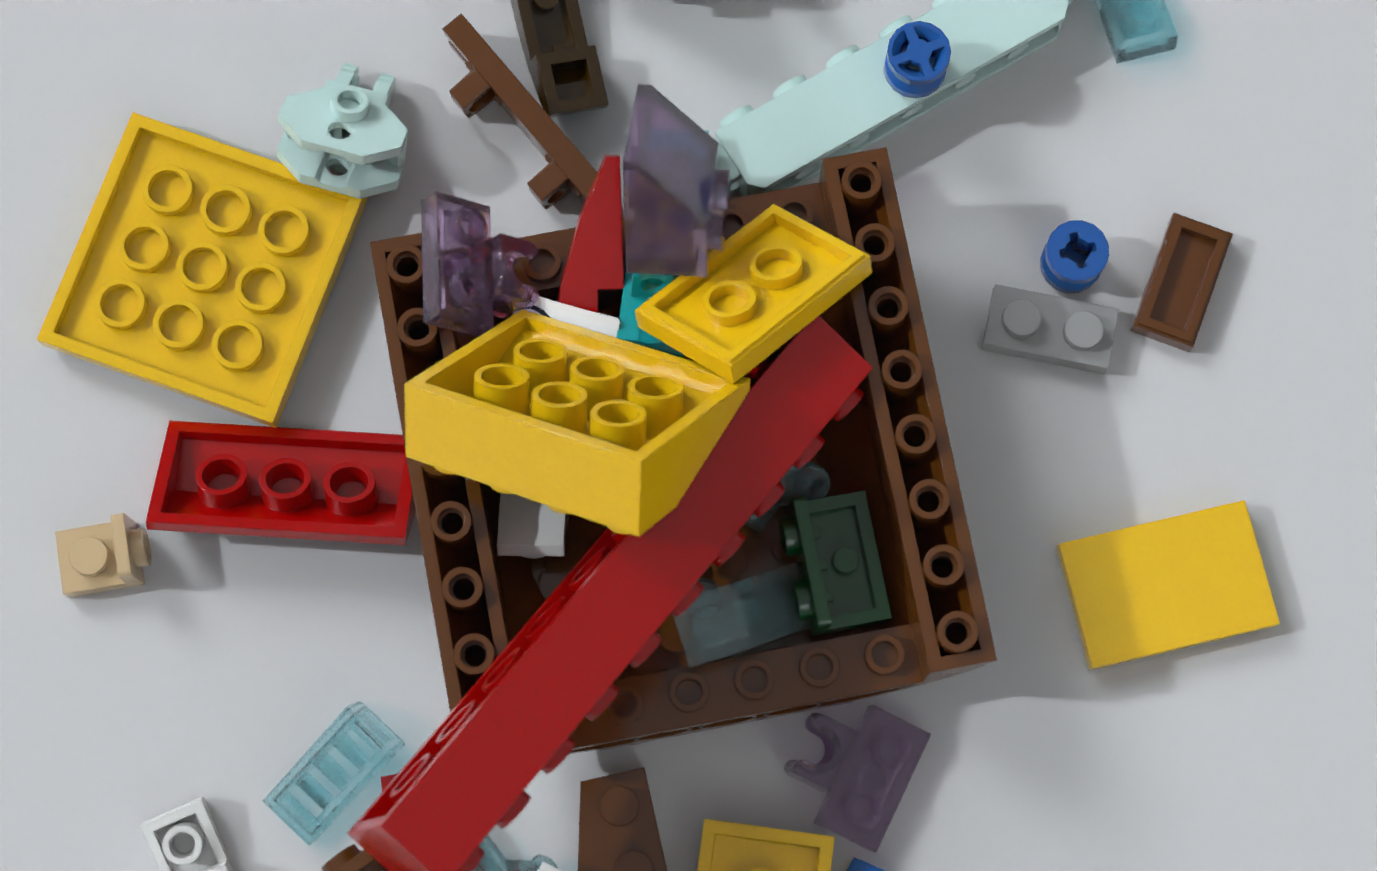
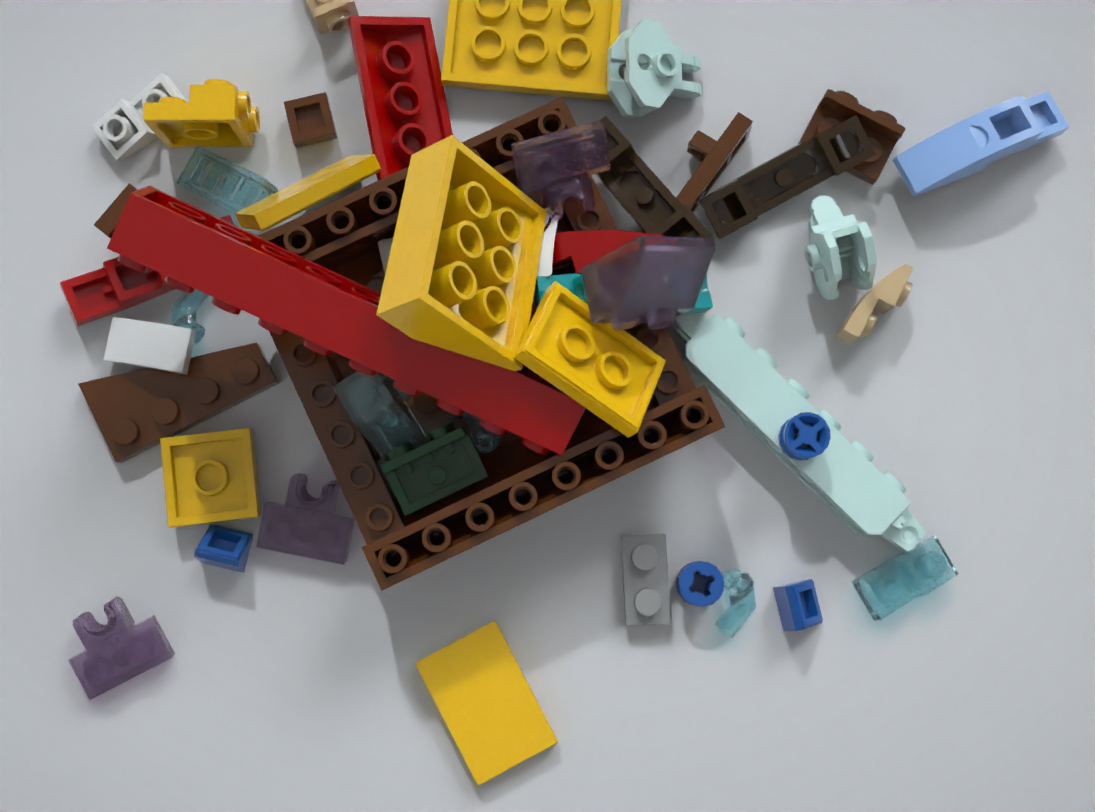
camera: 70 degrees right, 5 degrees up
(240, 745) = (212, 118): none -> yellow plate
(274, 624) = (310, 120): none -> reddish brown plate
(391, 643) = (307, 192): none -> yellow tile
(540, 174) = (644, 193): none -> dark brown slope
(1114, 210) = (742, 601): none -> clear light blue arm
(1133, 140) = (798, 605): none -> blue slope
(1181, 282) = (704, 663): reddish brown tile -> none

